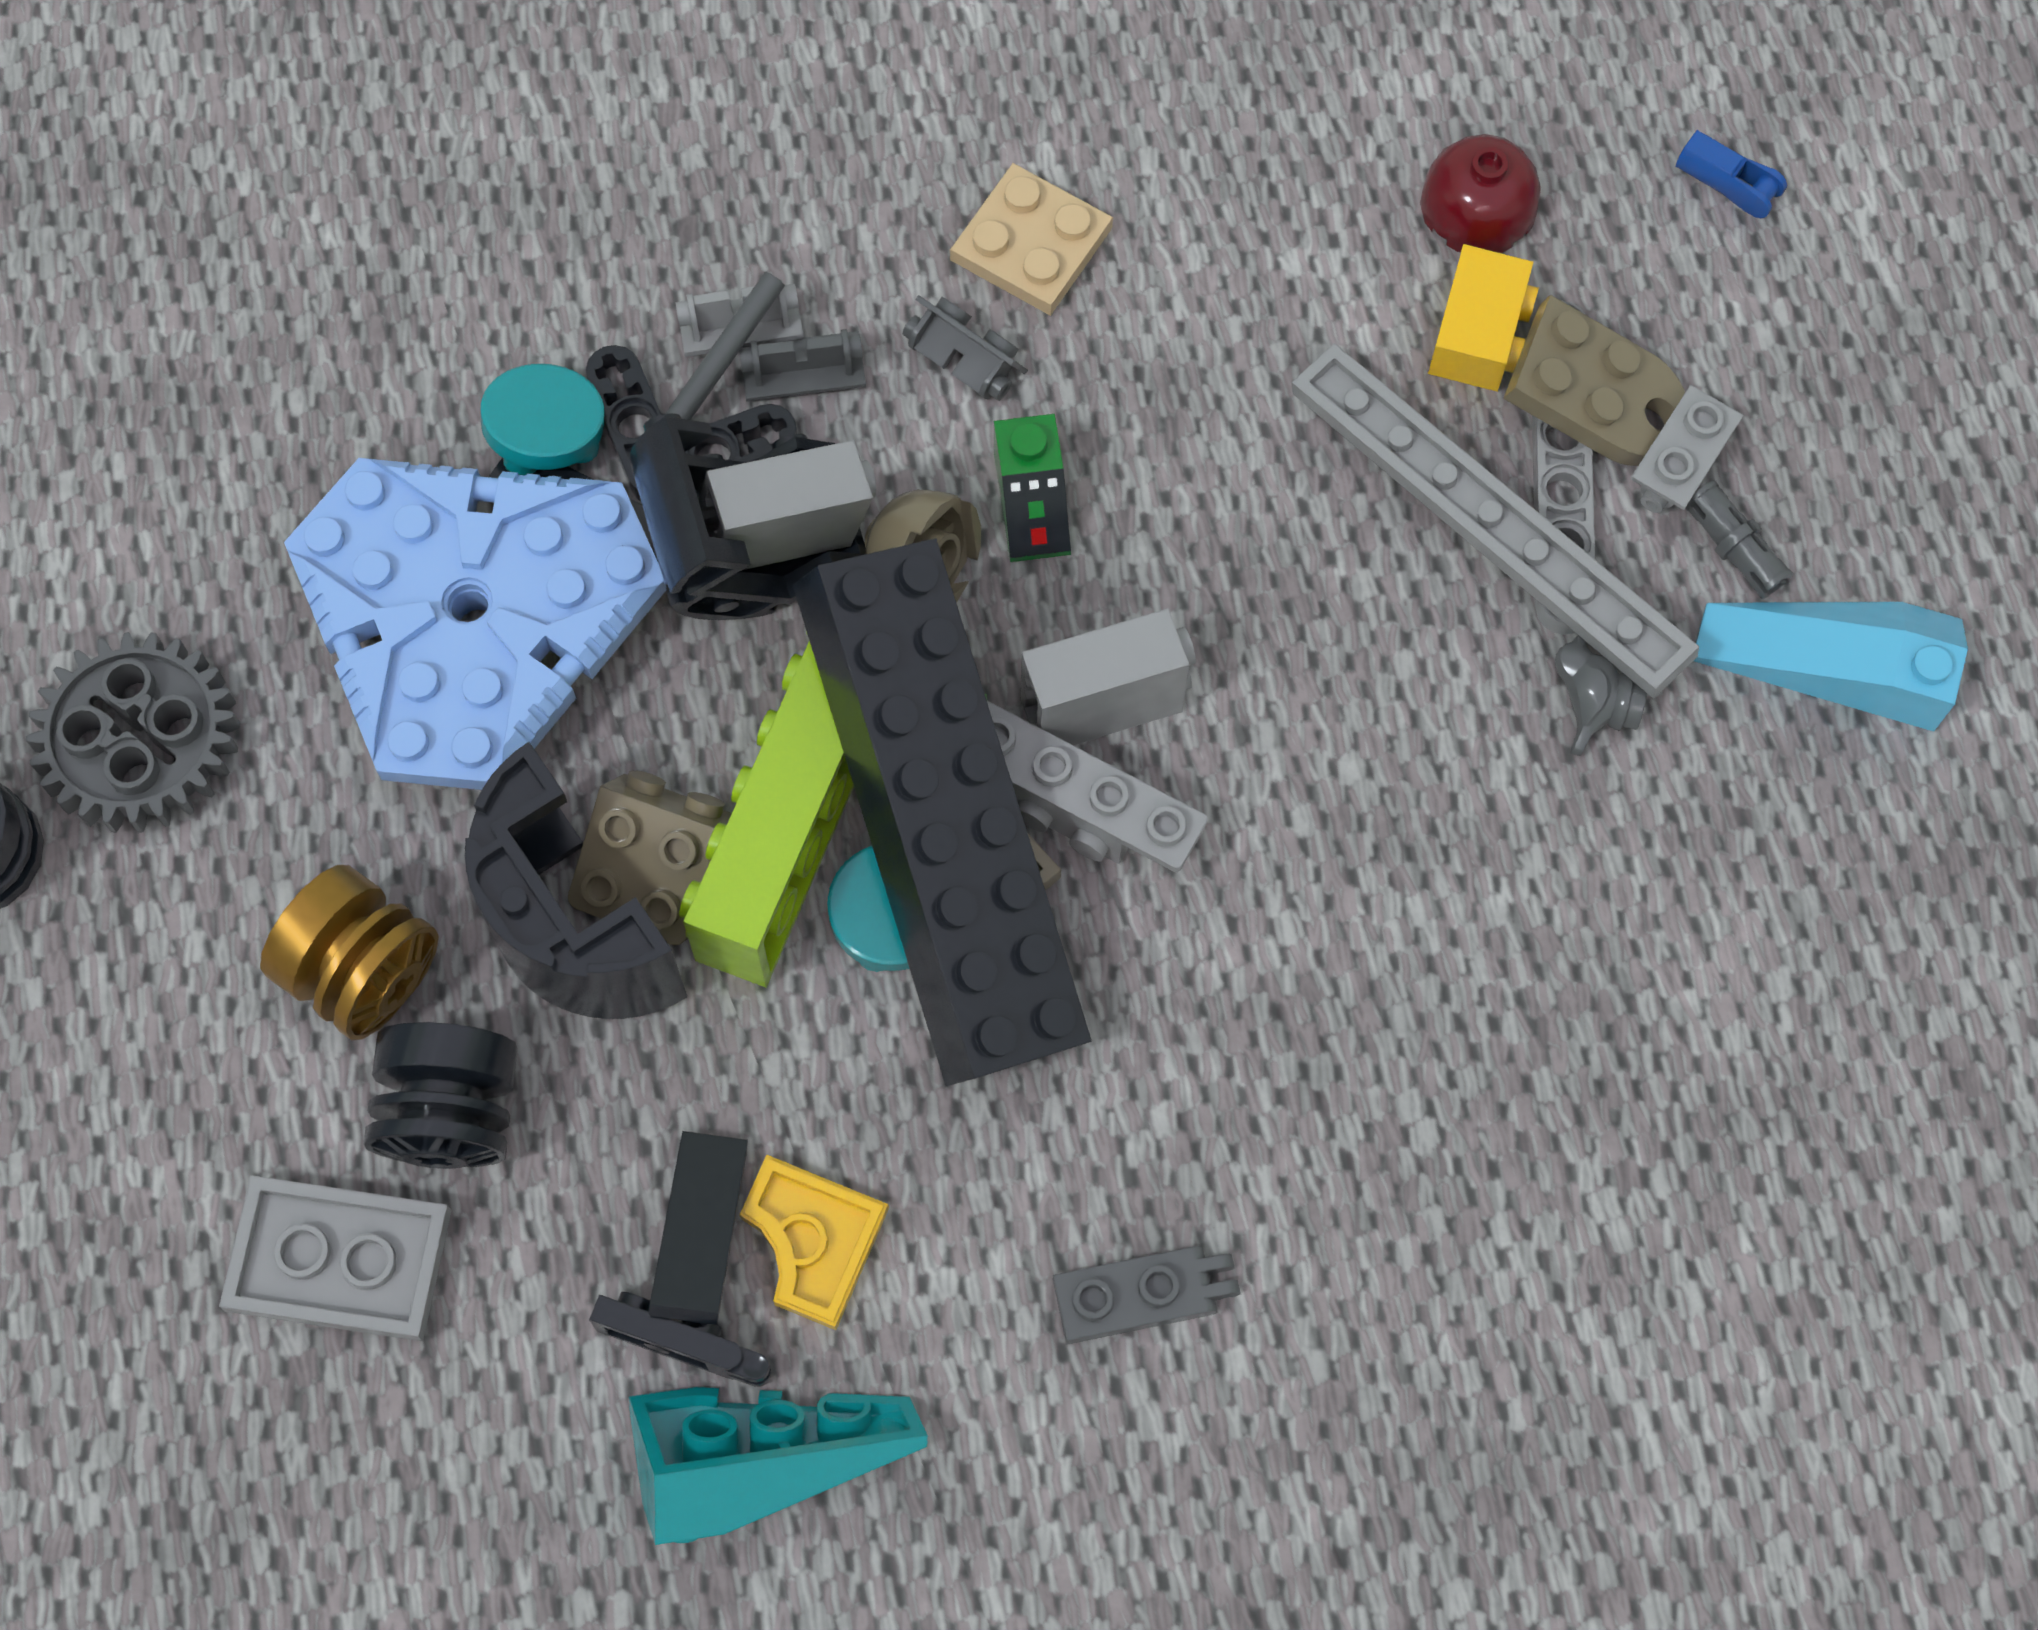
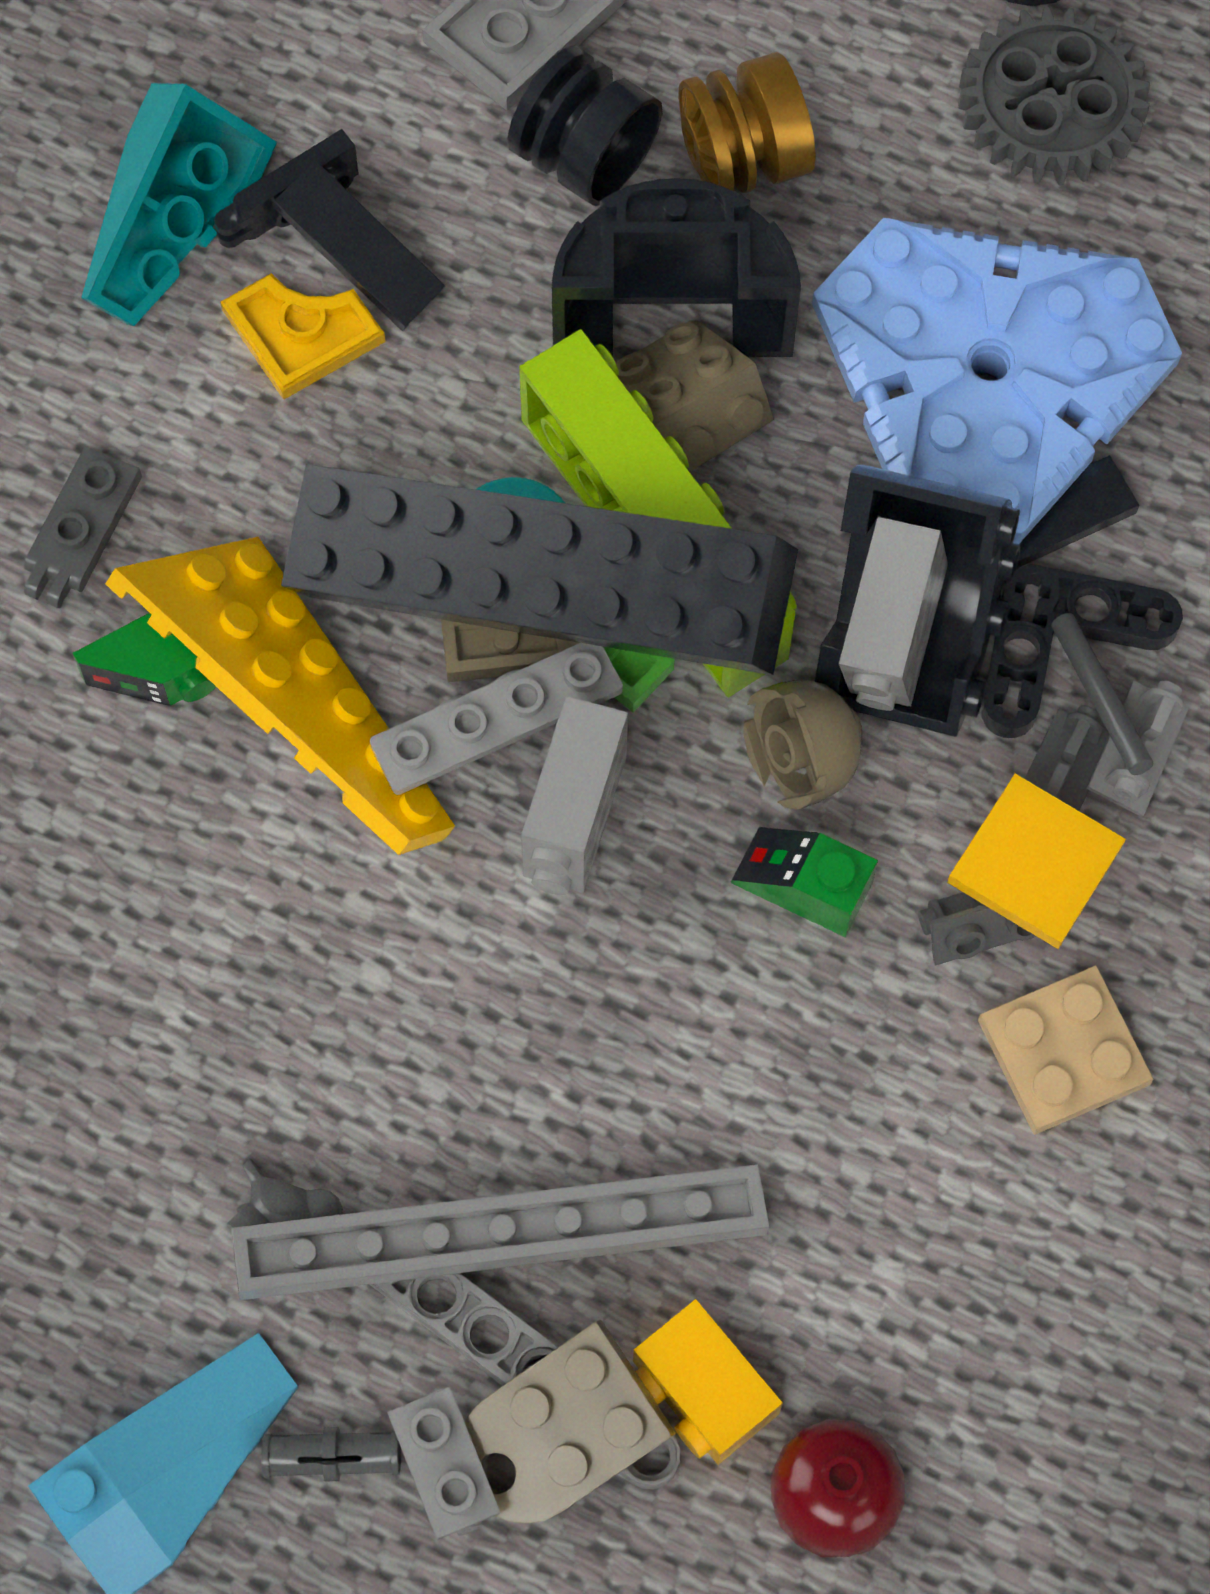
camera: 125 degrees right, 0 degrees up
(542, 418) = (1140, 527): teal tile -> none
(909, 311) = (1036, 861): none -> yellow tile
(1163, 1004) = (282, 673): none -> yellow wing
(1221, 1121) = (143, 665): none -> green slope

